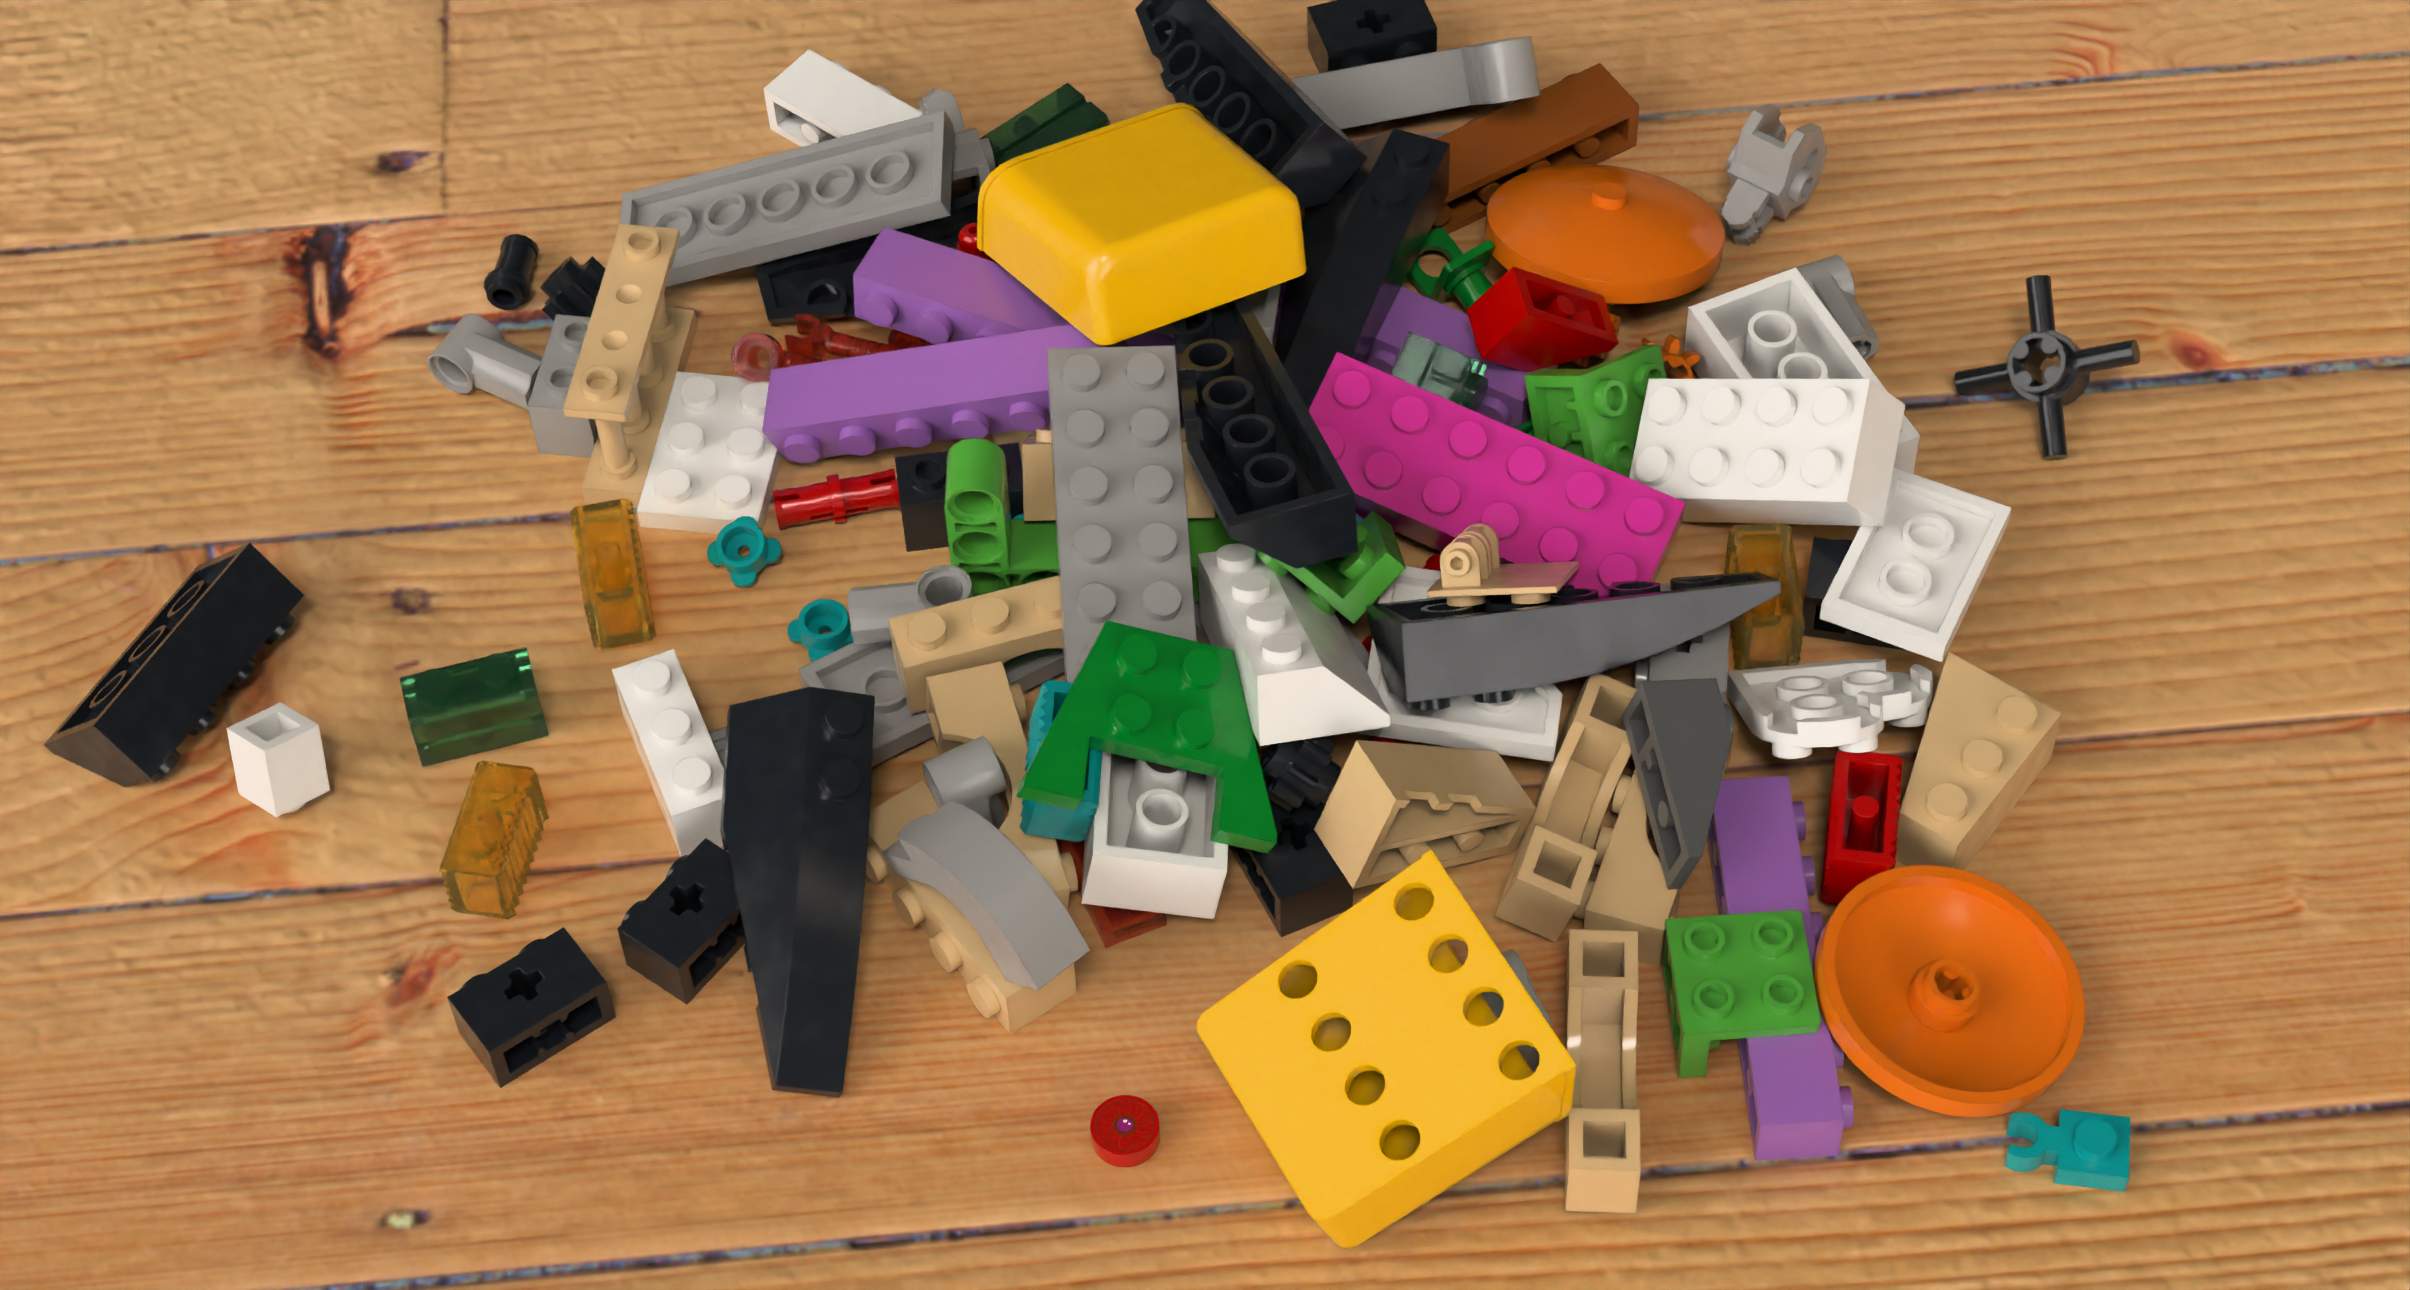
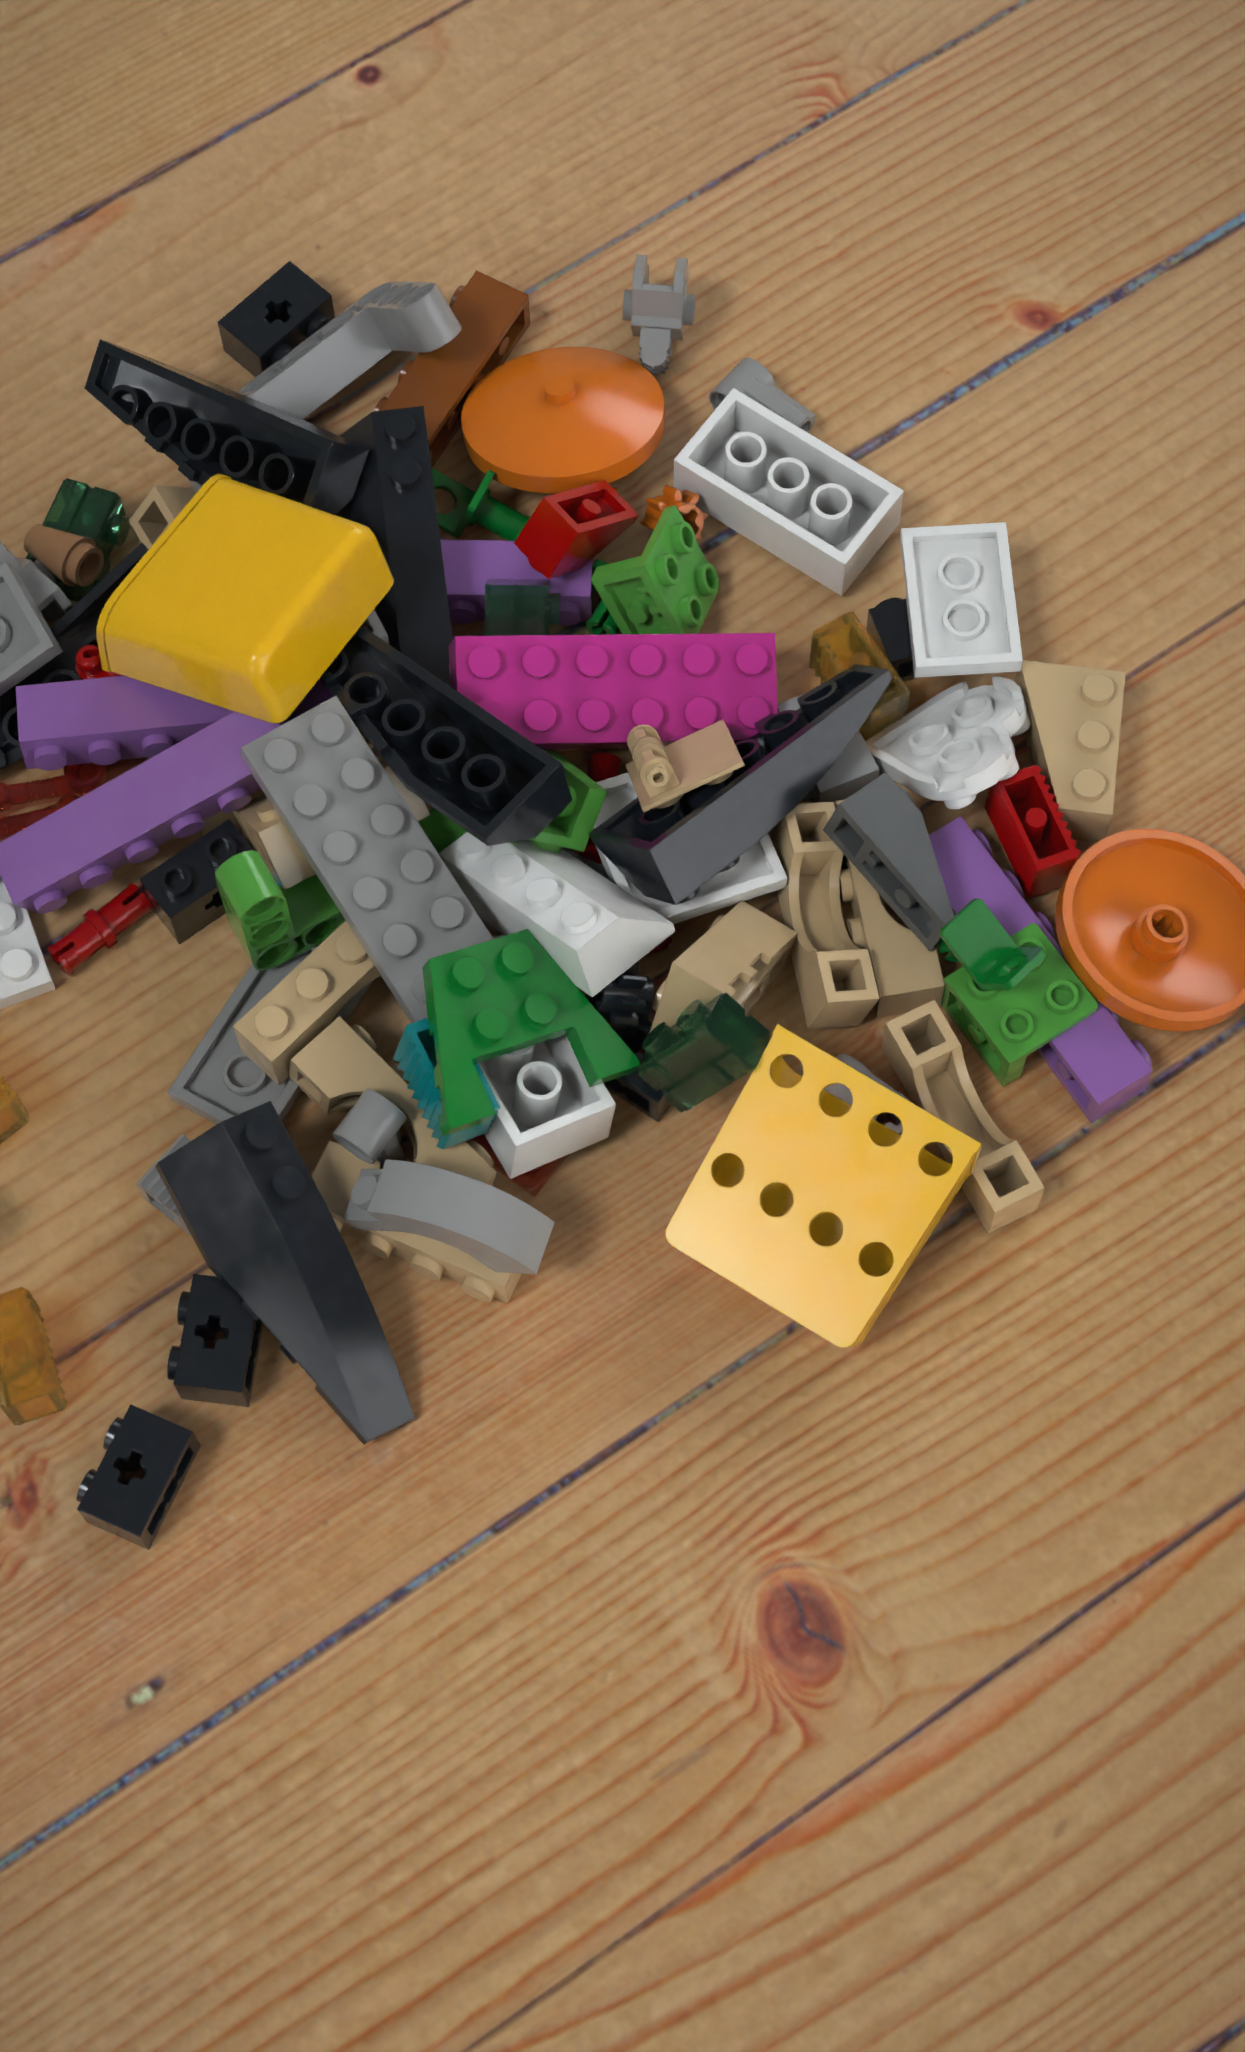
camera: 30 degrees left, 15 degrees up
(673, 747) = (117, 1210): white brick -> none
(734, 537) = (45, 998): teal plate -> none
(817, 618) = (162, 1031): teal plate -> none
(873, 605) = (217, 1009): light grey piece -> none
(1012, 133) = (65, 554): none -> medium nougat cone
(1125, 1131) = (642, 1337): red tile -> none
(1342, 851) = (702, 1051): none -> clear green brick
(1718, 892) = (986, 948): none -> green bracket
(1770, 449) = (807, 559): white brick -> none
(2063, 382) = (935, 397): black bar -> none

